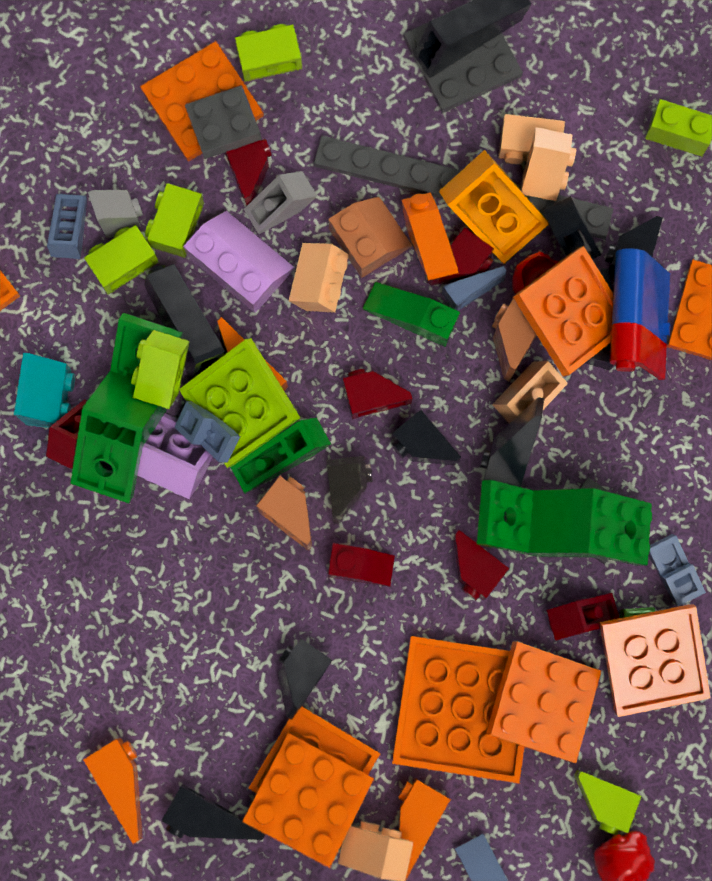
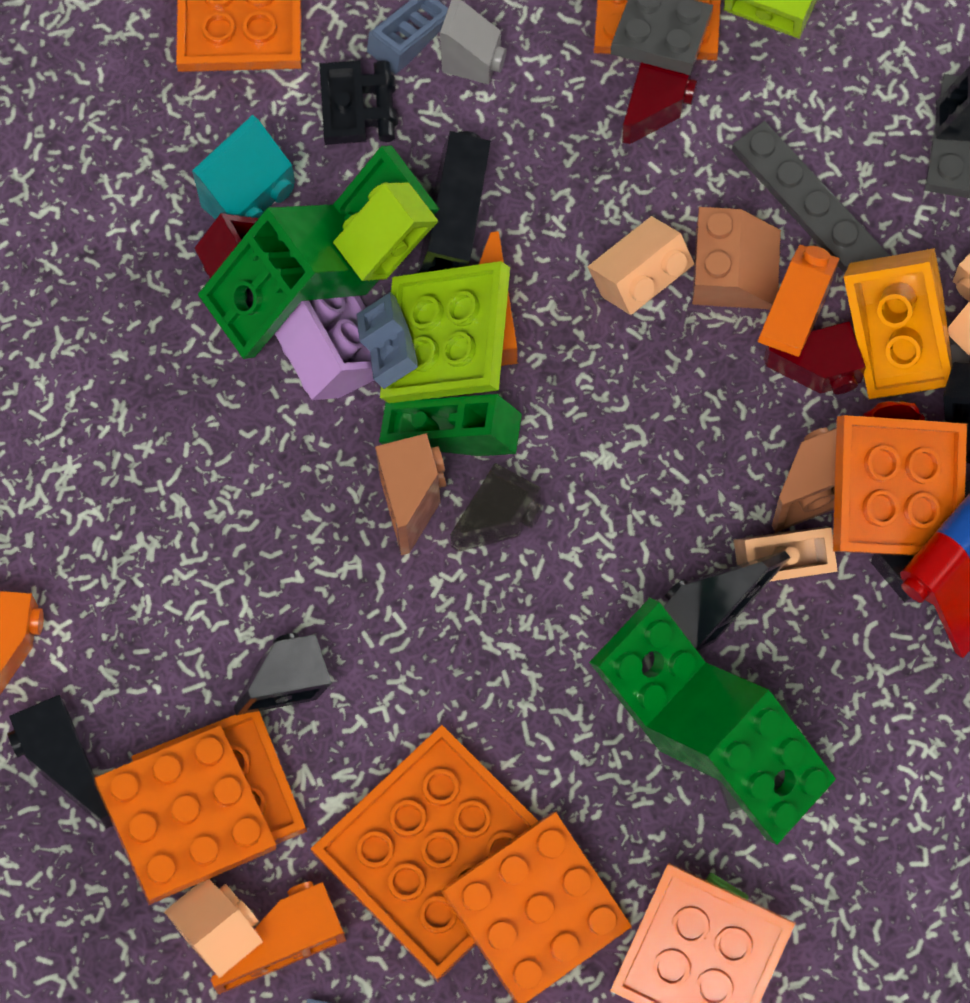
camera: 40 degrees right, 10 degrees down
(64, 300) = (344, 103): none -> black plate
(121, 258) = (438, 101): lime brick -> none
(174, 219) = (529, 100): lime brick -> none
(238, 260) = (566, 188): lavender slope -> none
(280, 201) = (663, 157): light grey slope -> none
(361, 565) = (445, 607): dark red slope -> none
(373, 393) = (604, 433): dark red slope -> none
(413, 312) = (721, 380): green slope -> none
(423, 442) = (621, 524): black slope -> none
(467, 290) = (809, 397): sand blue slope -> none
(476, 567) = (575, 706): dark red slope -> none
(582, 616) = (651, 842): dark red slope -> none
(675, 570) = (809, 878): sand blue slope -> none

